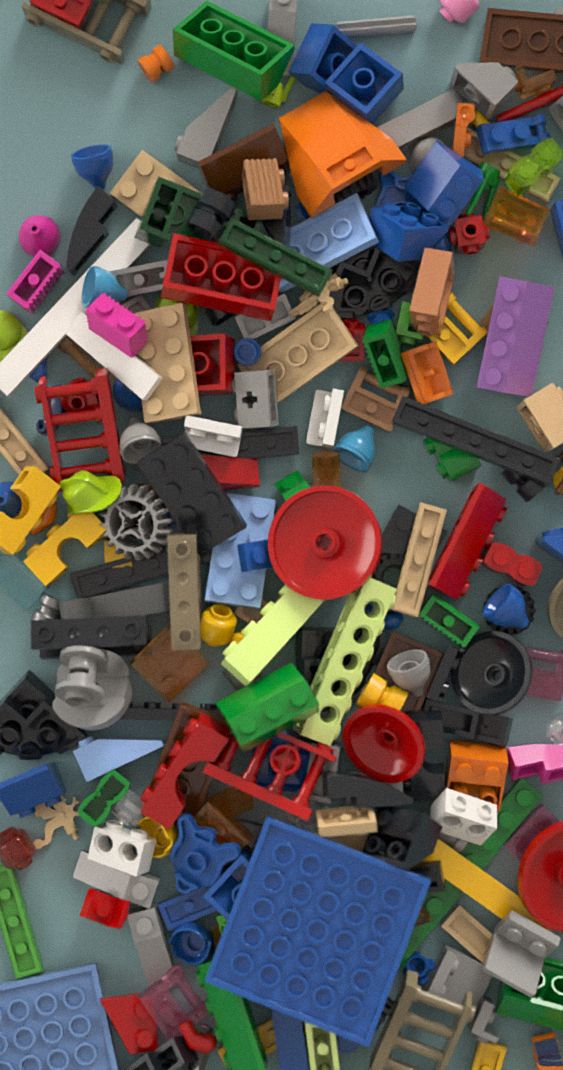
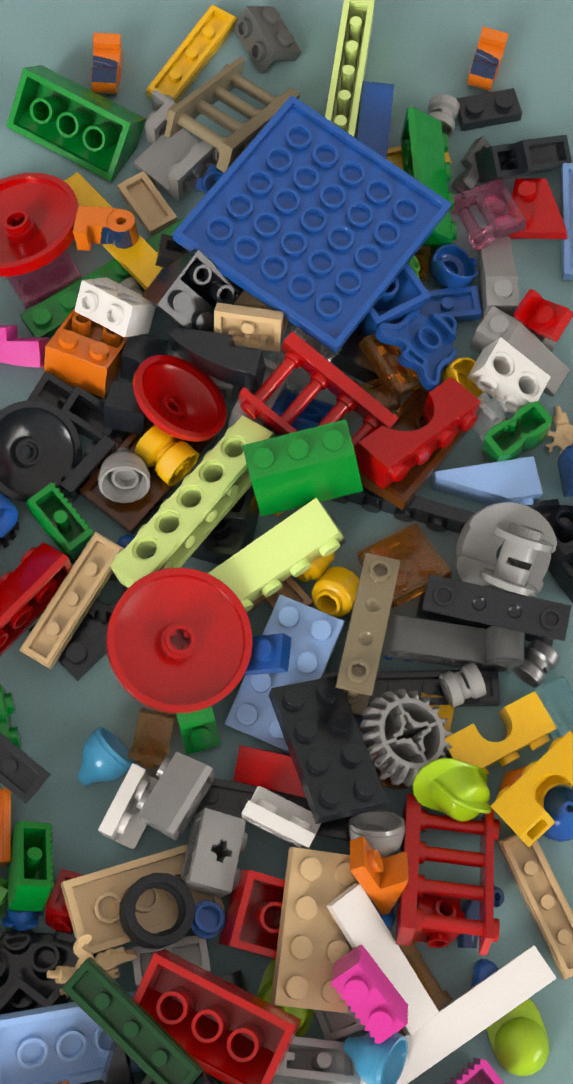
camera: 170 degrees left, 15 degrees down
(106, 571) = (462, 684): none -> light grey wheel
(131, 409) = (379, 877): none -> orange slope
(197, 1041) = (471, 168): red arm -> none
(263, 341) = (185, 904): none -> black tyre
(285, 756) = (300, 394): red wheel -> none
(295, 429) = (175, 795): none -> light grey slope
(370, 406) = (69, 806): medium nougat plate -> none
(495, 889) = (104, 226): none -> orange leg
(519, 952) = (103, 162): light grey bracket -> none

